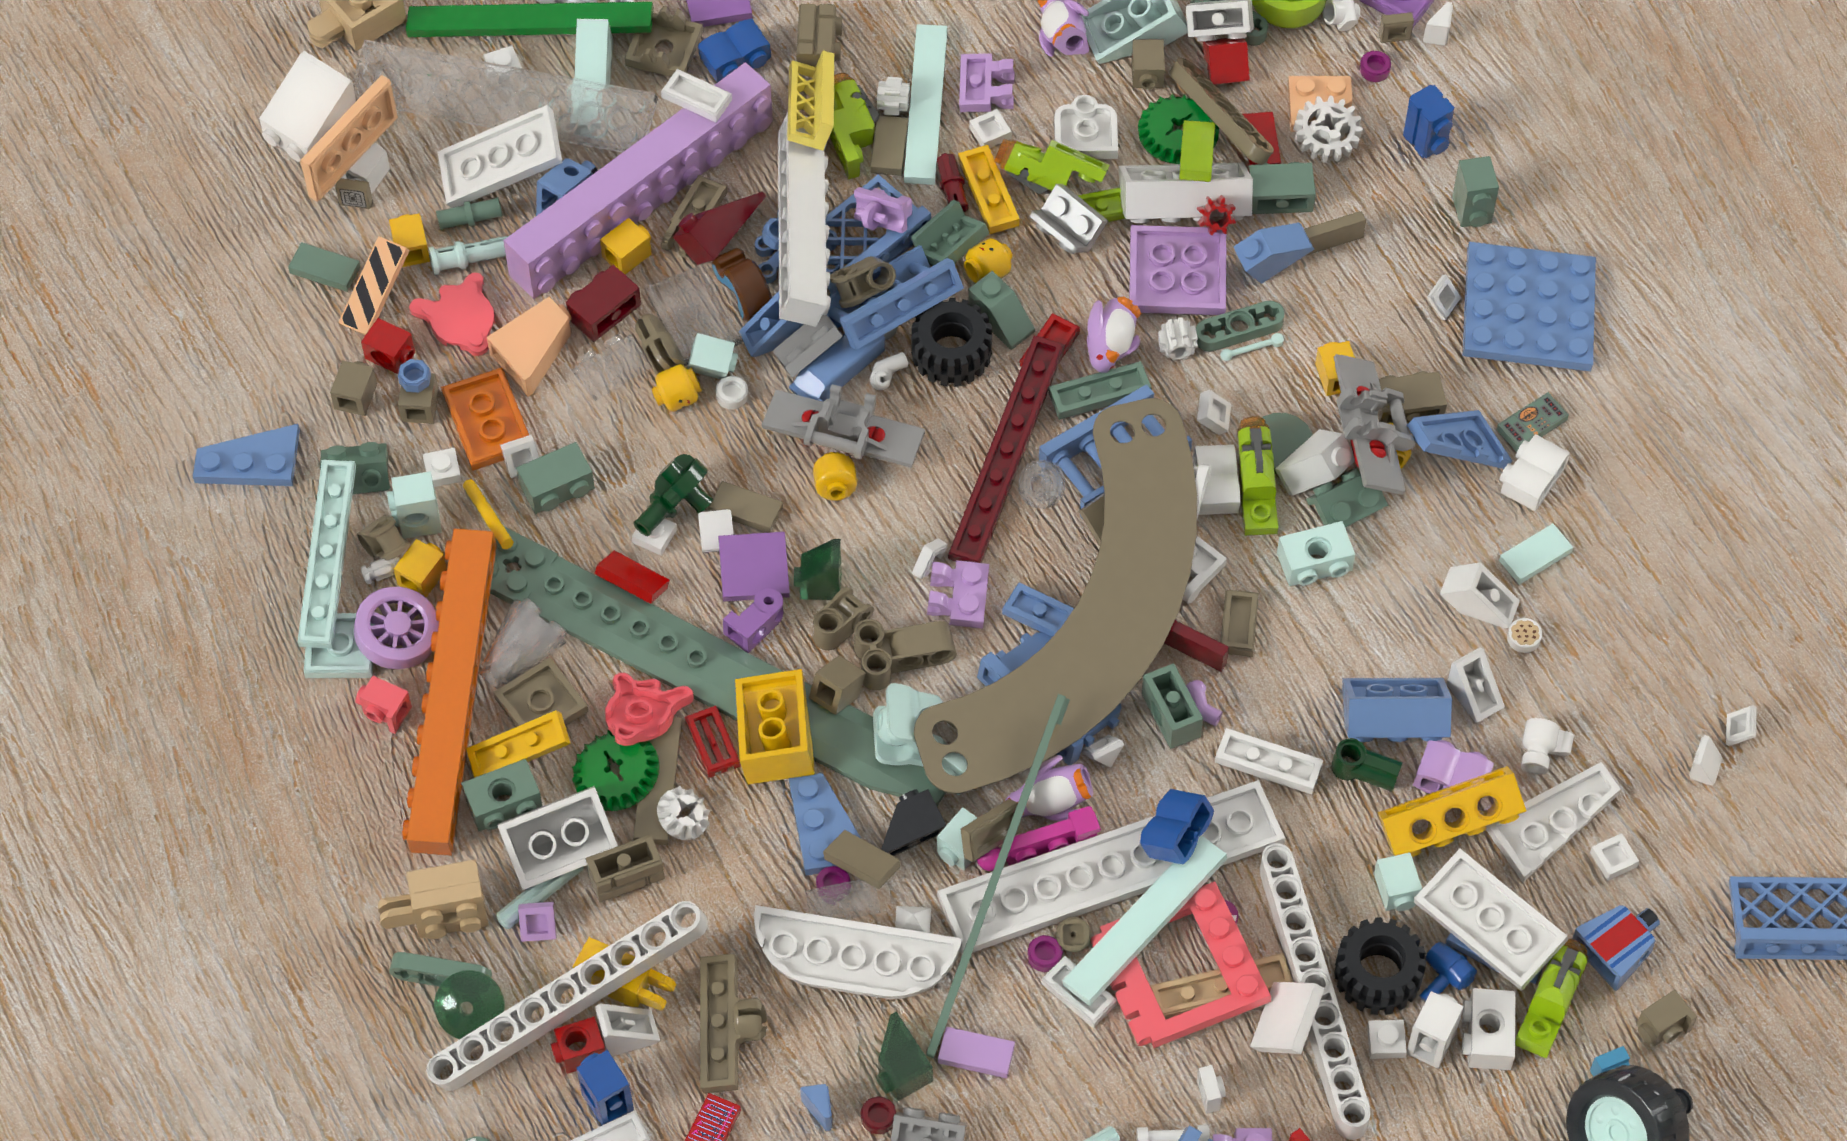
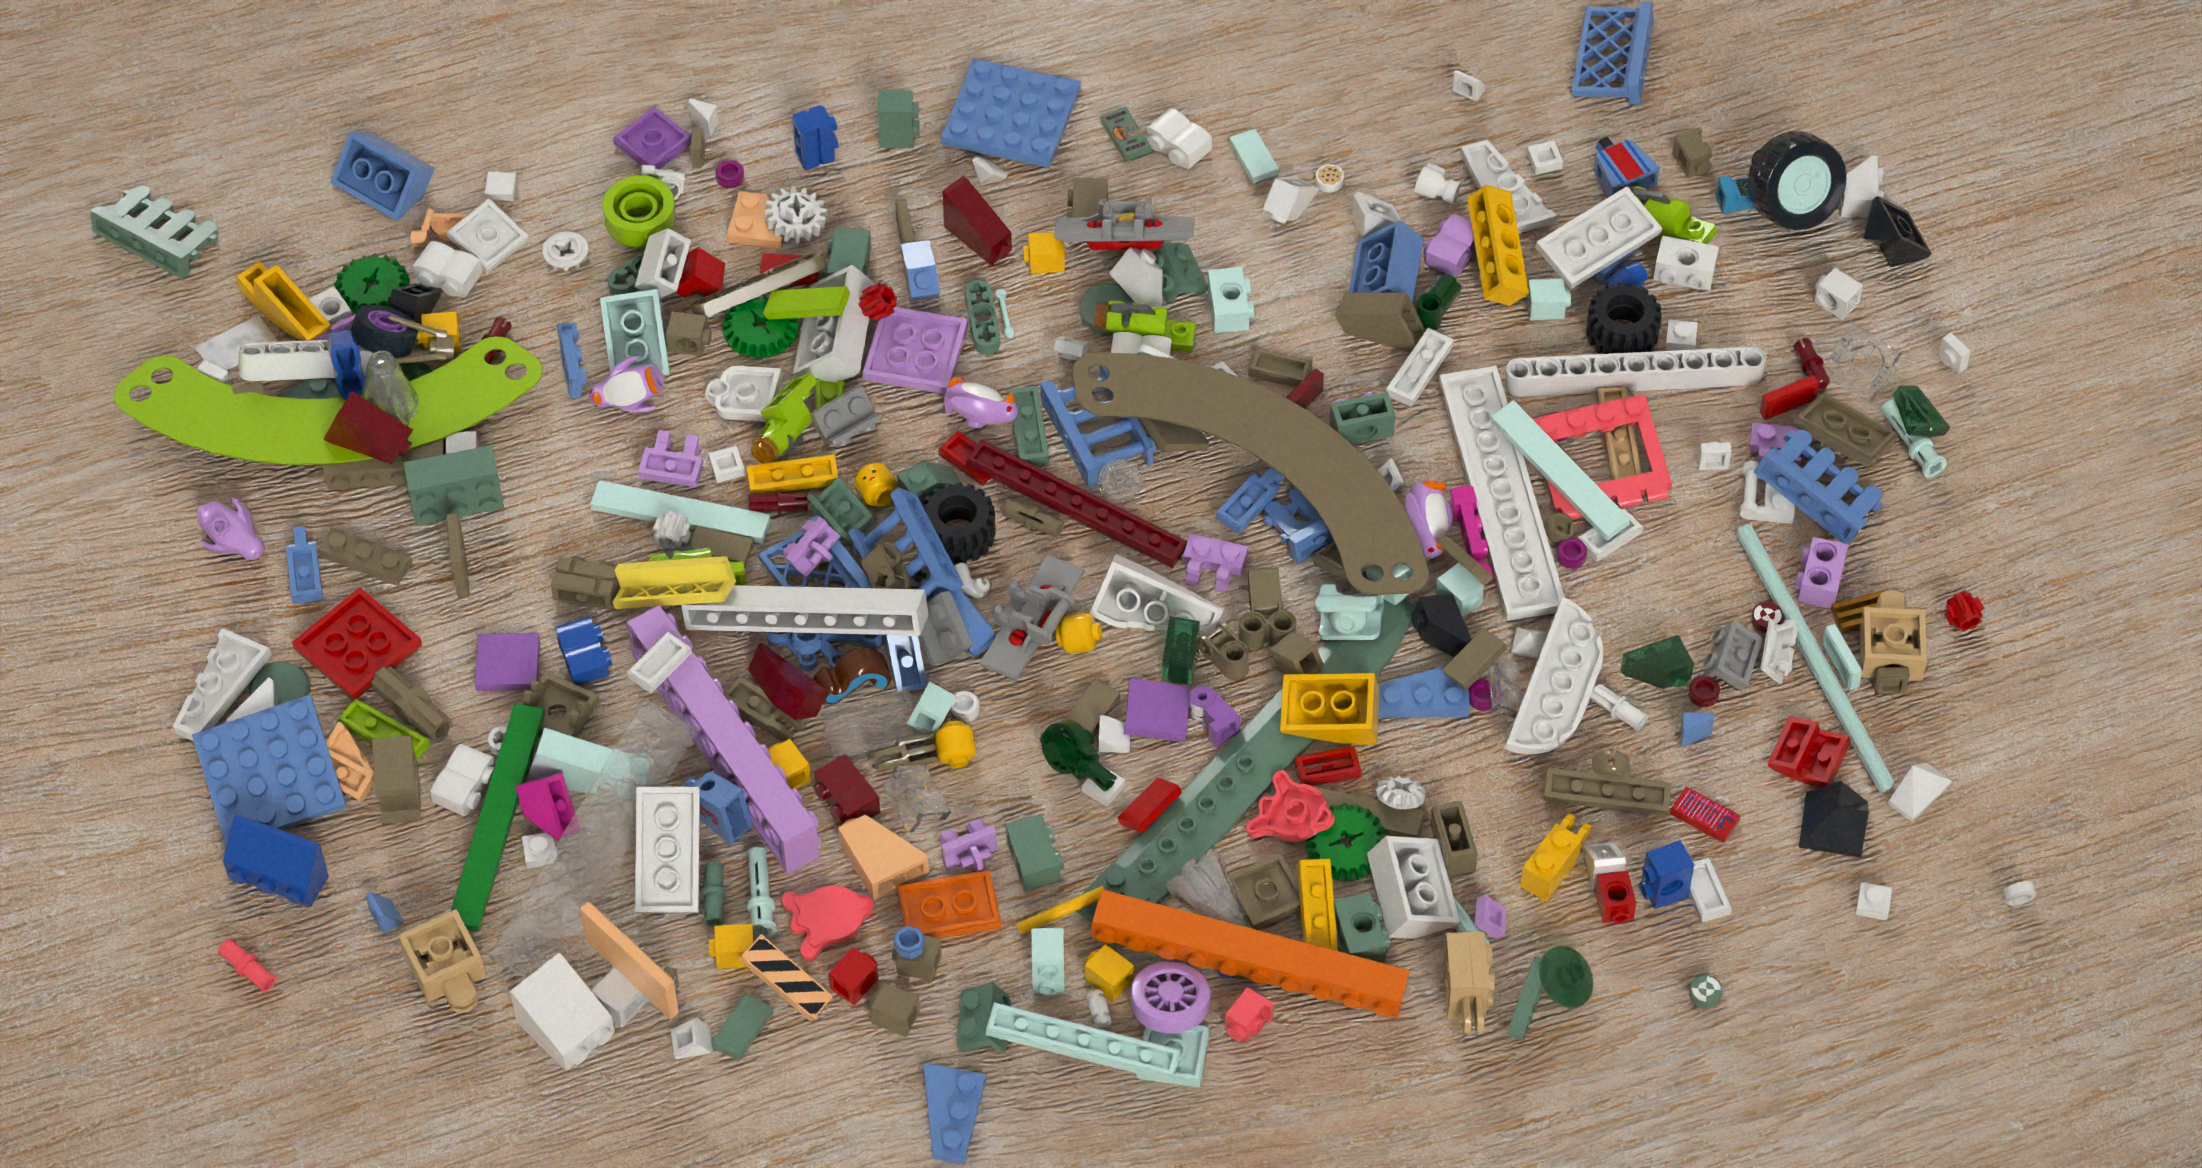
camera: 80 degrees left, 5 degrees down
(307, 228) = (691, 1039): none -> white slope
(383, 539) = (1075, 993): dark tan piece -> none
(443, 466) = (996, 949): white plate -> none
(518, 453) = (1003, 877): white plate -> none
(548, 50) = (547, 803): none -> dark pink slope
(549, 422) = (969, 848): none -> lavender hips
(550, 996) = (1582, 898): white beam -> none
(837, 1024) = (1619, 707): none -> white axle
(894, 524) = (1146, 600): none -> white wedge
(929, 552) = (1174, 573): white tile -> none
(976, 1052) = (1656, 613): lavender tile -> none
(981, 414) = (1050, 524): none -> dark tan pin
(1056, 717) = (1504, 561): sand green piece -> none
(1177, 339) = (991, 358): white gear -> none
(1177, 826) = (1485, 428): blue brick -> none
(1287, 1017) = (1667, 385): white tile -> none
(1321, 709) = (1381, 319): none -> dark tan slope
(1355, 290) = (975, 222): none -> dark red slope
(1435, 1029) = (1688, 291): white brick -> none
(1460, 437) = (1140, 177): medium blue wing -> none
(1741, 725) = (1441, 54): white slope -> none

